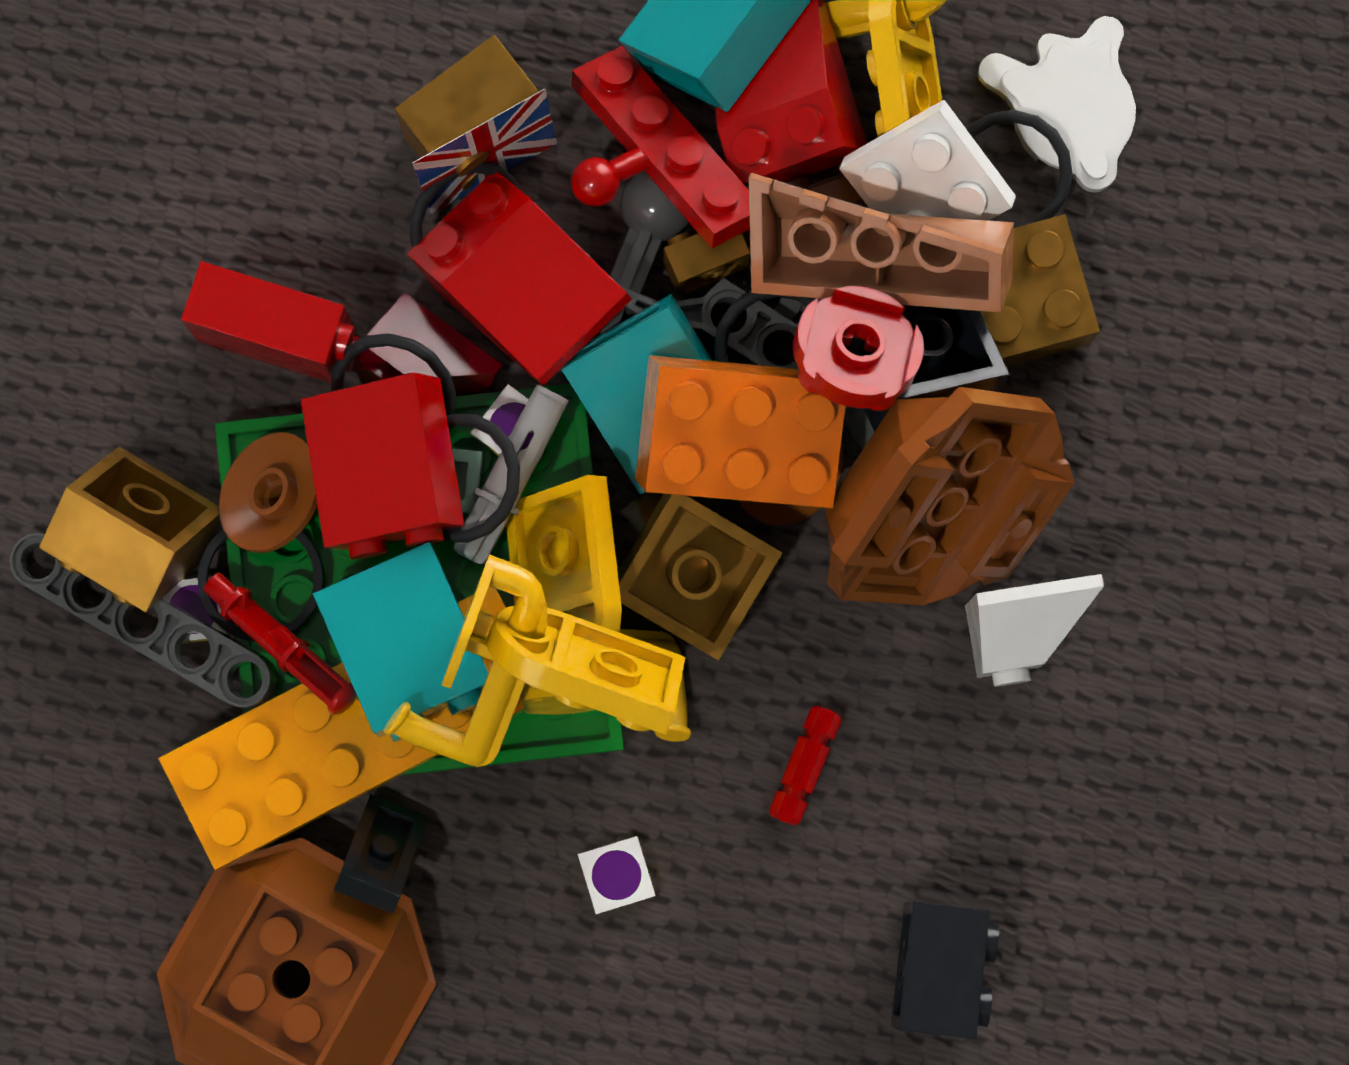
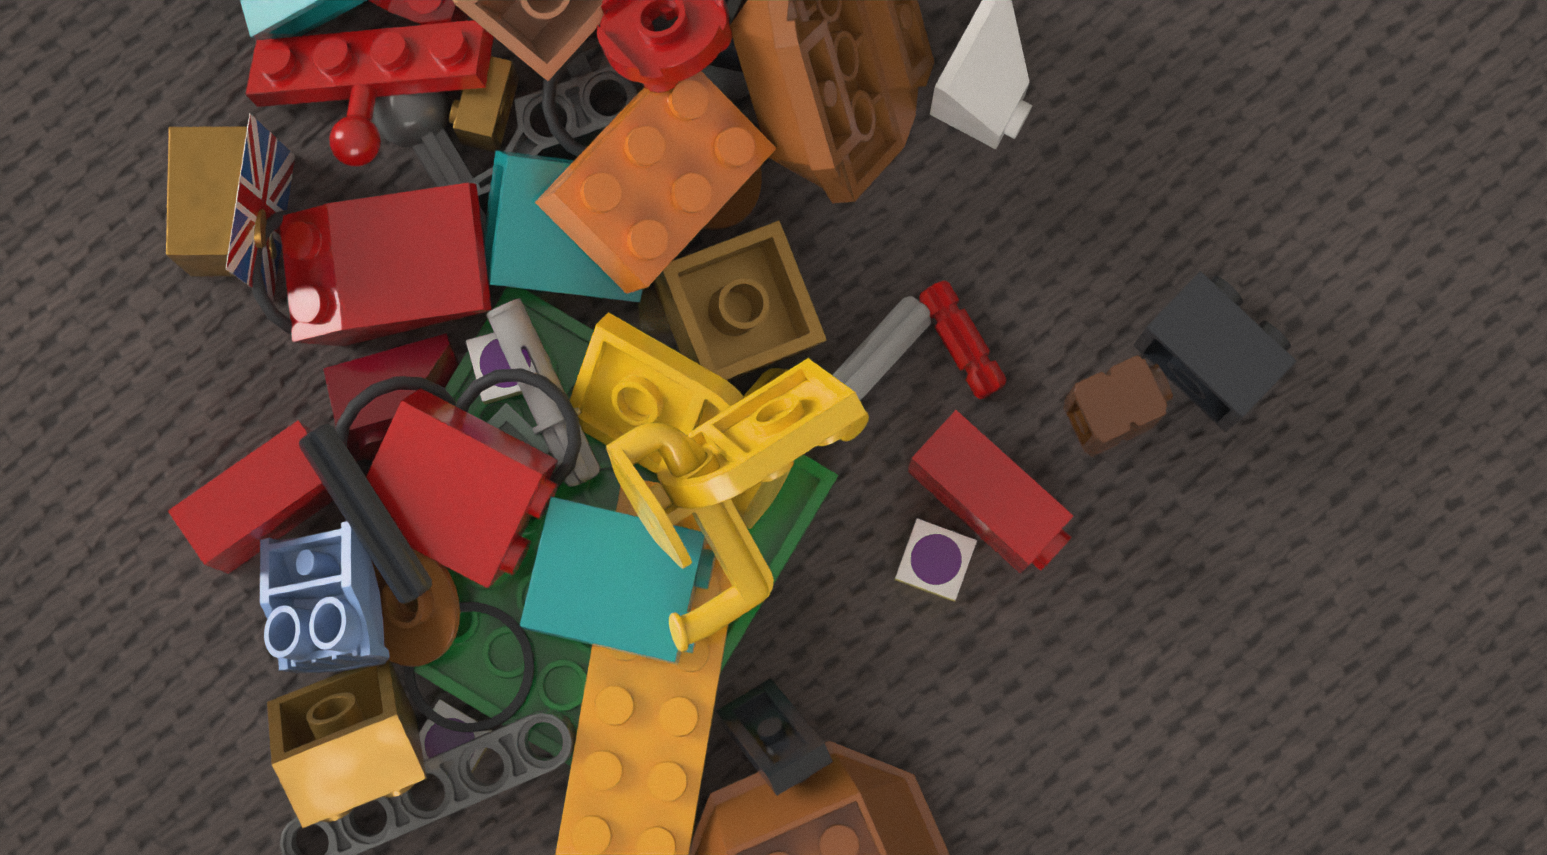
camera: 45 degrees left, 0 degrees up
(223, 428) = (321, 603): none -> medium blue slope
(281, 644) = (539, 687): red piece -> none
(309, 411) = (365, 513): none -> black axle
(695, 879) = (991, 494): none -> red brick
(741, 707) = (884, 346): none -> light grey axle
(844, 926) = (1117, 404): none -> reddish brown brick

